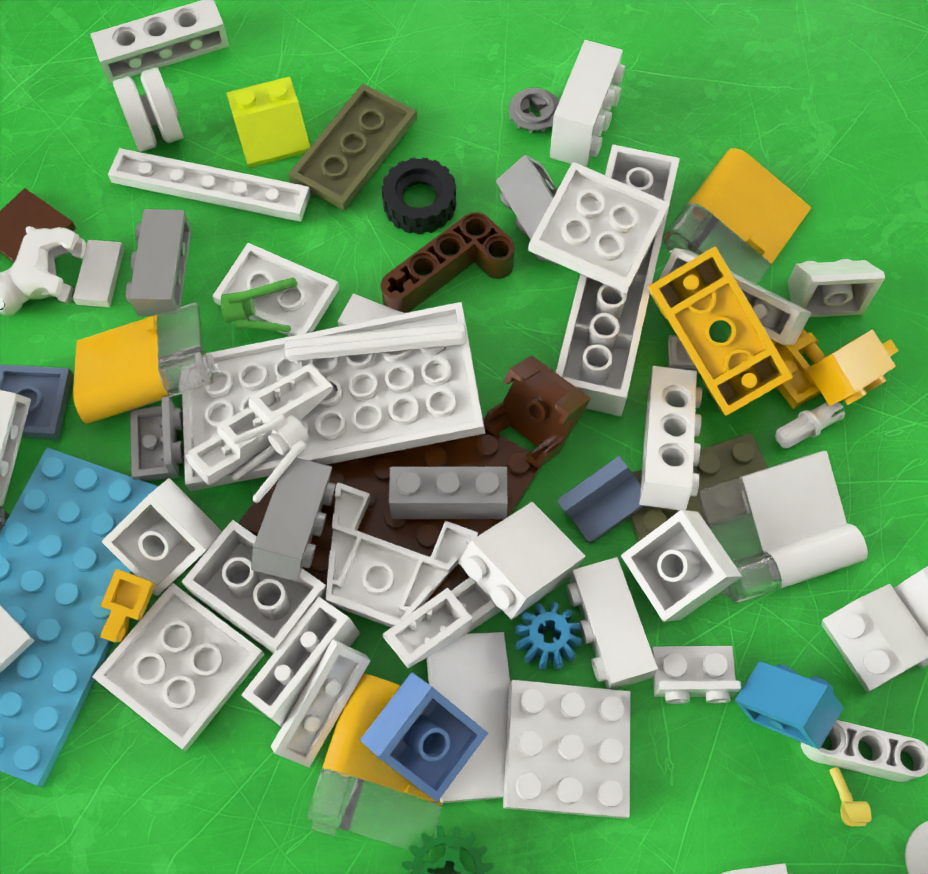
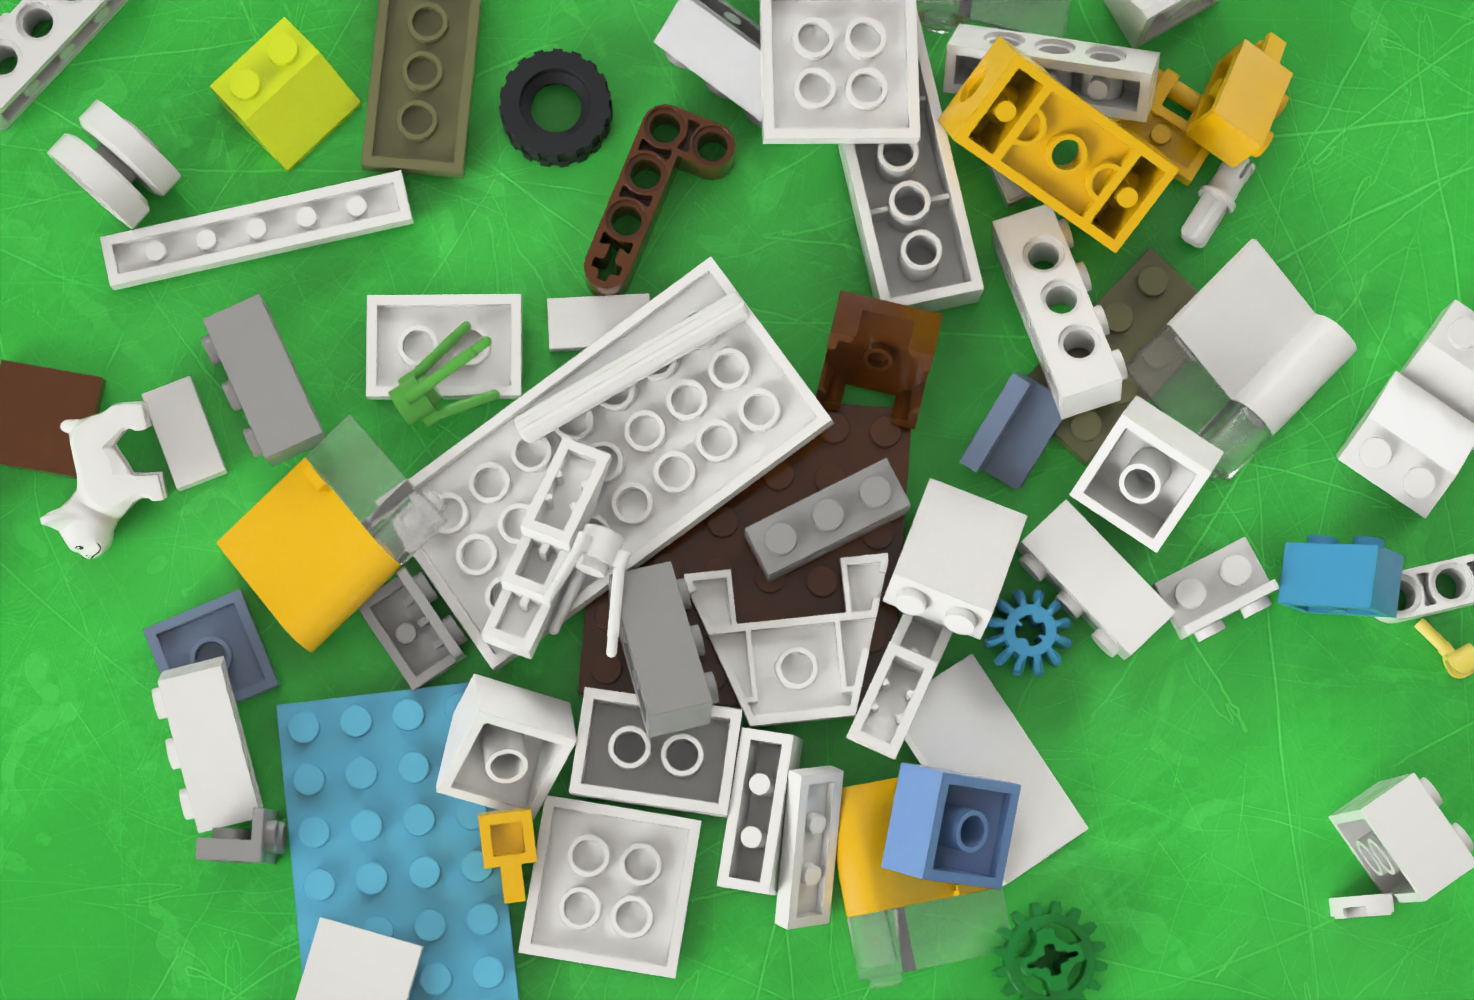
camera: 30 degrees left, 15 degrees up
(567, 750) = (1113, 753): white plate -> none

